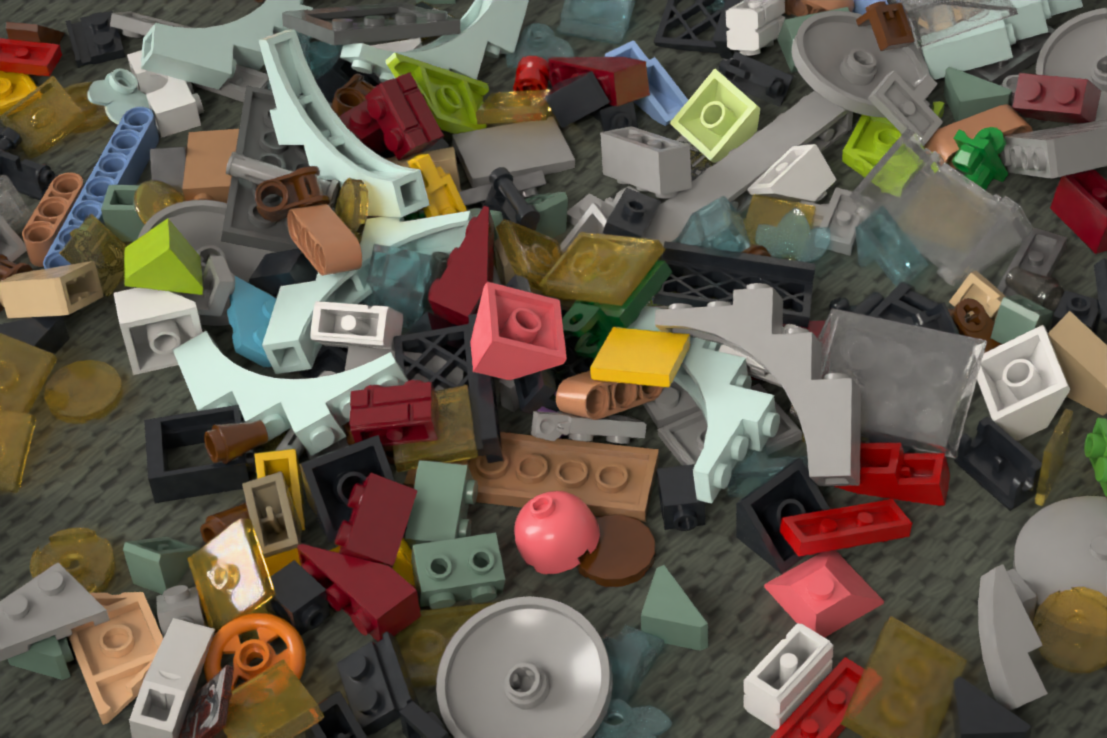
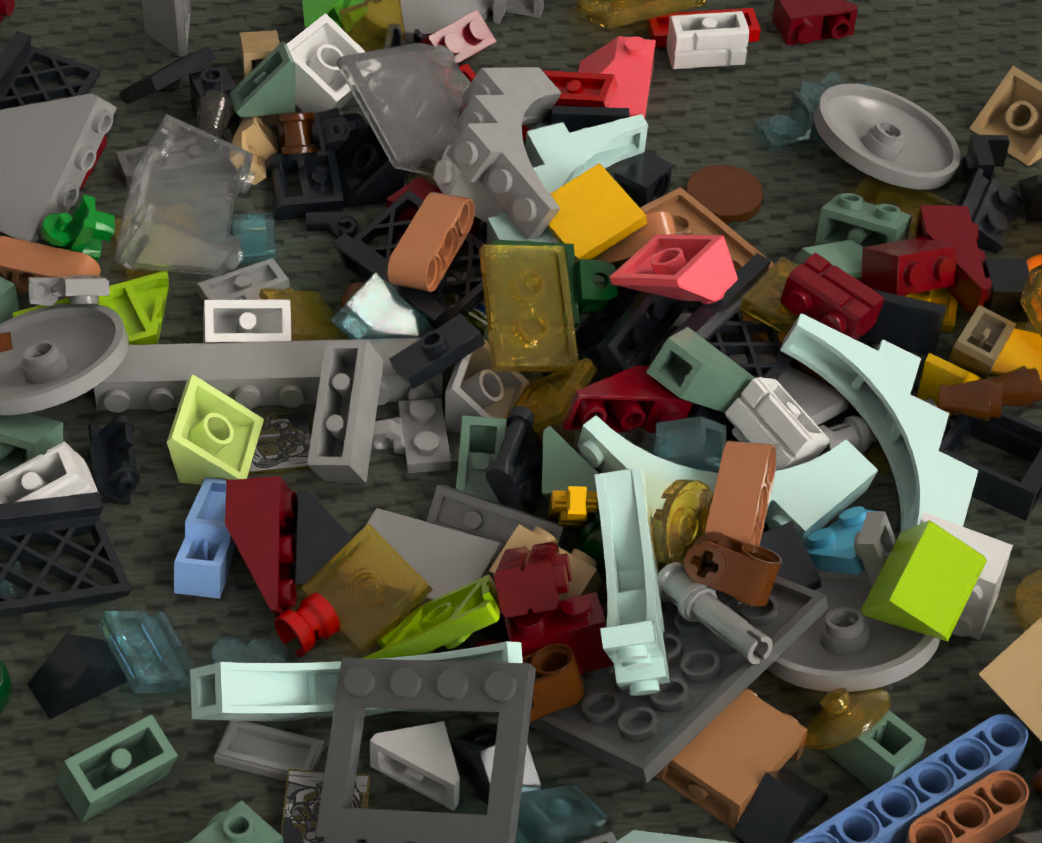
camera: 145 degrees left, 0 degrees up
(98, 244) = (958, 723): clear yellow piece -> none
(436, 298) = (699, 371): none -> sand green slope
(555, 532) = (763, 210): coral cylinder -> none
(672, 615) = (740, 125): sand green slope -> none
(720, 260) = (431, 241): none -> nougat beam
(794, 238) = (312, 289): clear light blue plate -> none
(975, 491) = (463, 37): none -> brick

